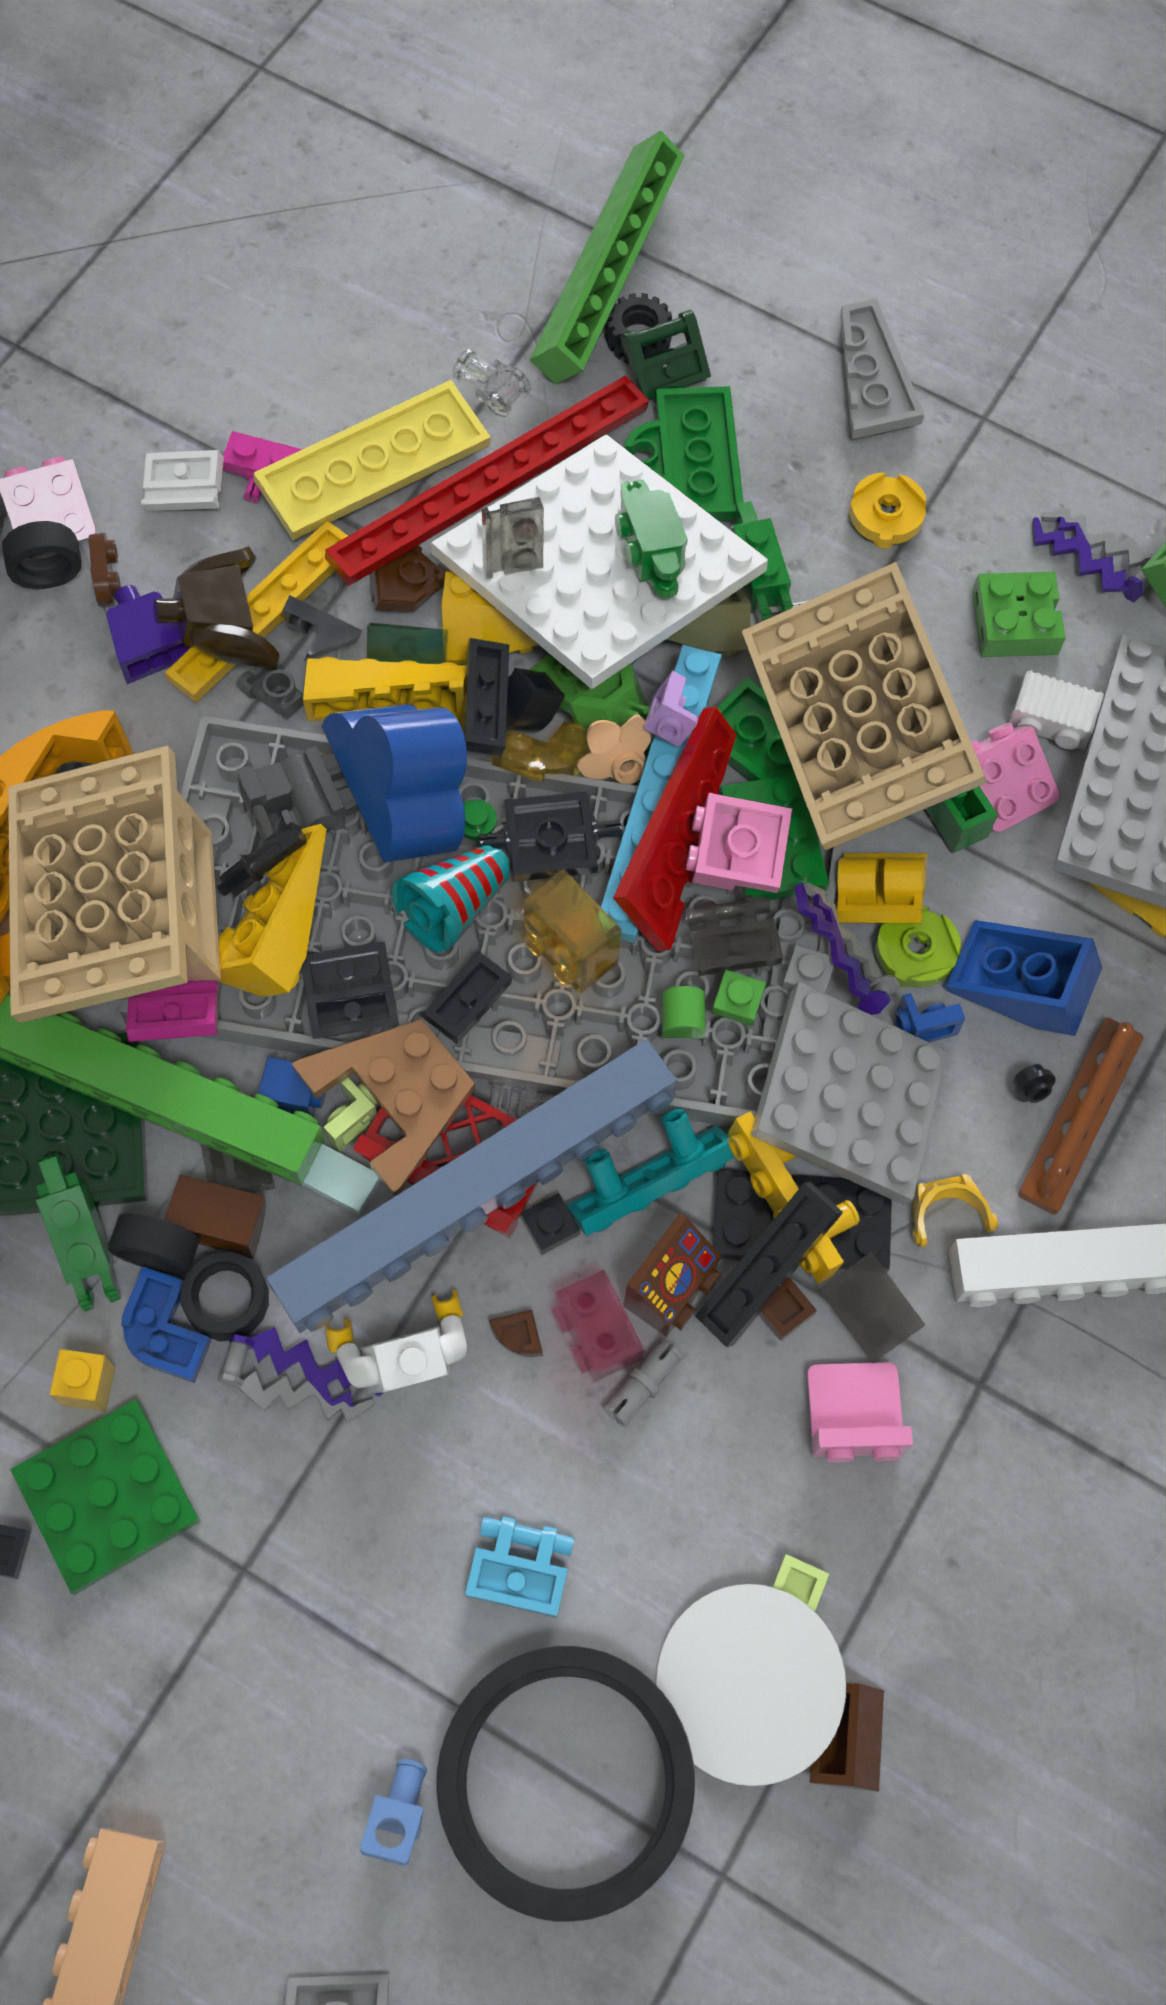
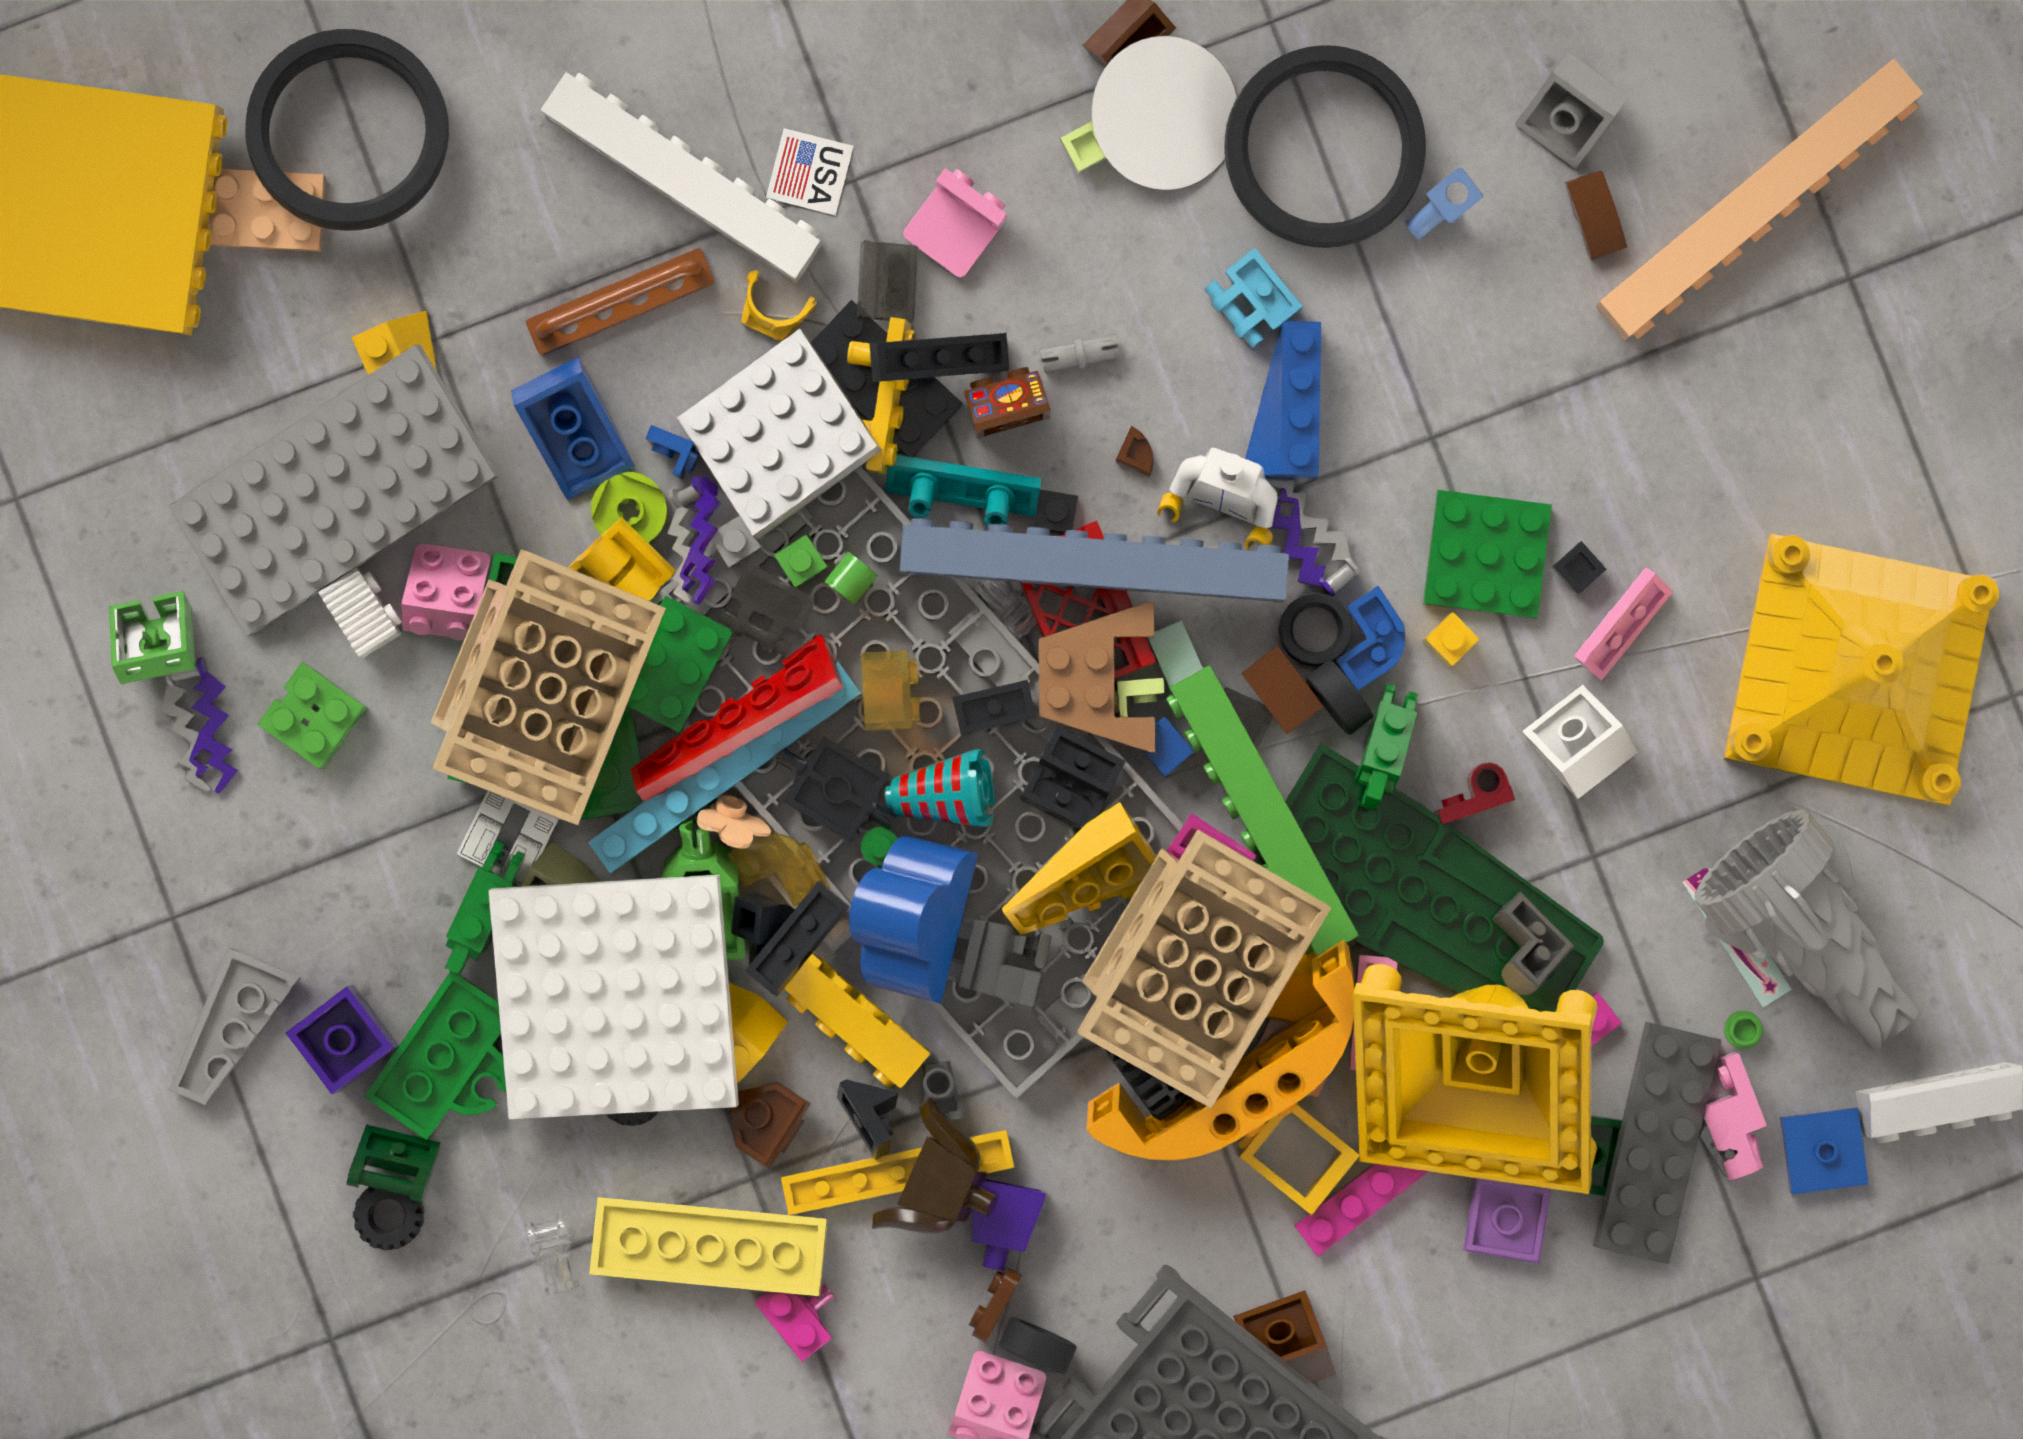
camera: 135 degrees left, 20 degrees up
(182, 480) = (875, 1343): white plate -> none
(230, 1942) = (1596, 214): none -> reddish brown slope
(261, 860) = (1062, 924): black piece -> none
(396, 1471) = (1289, 410): none -> blue wedge
(404, 643) = (811, 1049): clear green plate -> none
(485, 480) = (632, 1150): red plate -> none
(513, 537) = (686, 1032): clear smoke plate -> none
(597, 1326) = (1081, 413): clear pink brick -> none
(607, 258) = (359, 1301): bright green brick -> none
(652, 536) = (568, 969): hinge -> none
(666, 713) = (677, 817): lavender bracket -> none
(739, 844) = (712, 667): bright pink plate -> none
(781, 407) = (342, 1039): none -> dark purple brick
(787, 1310) = (945, 322): reddish brown plate -> none
(883, 527) = (316, 871): yellow plate -> none
(1025, 1360) = (809, 171): none -> sticker
(1033, 1083) = (638, 346): black plate -> none

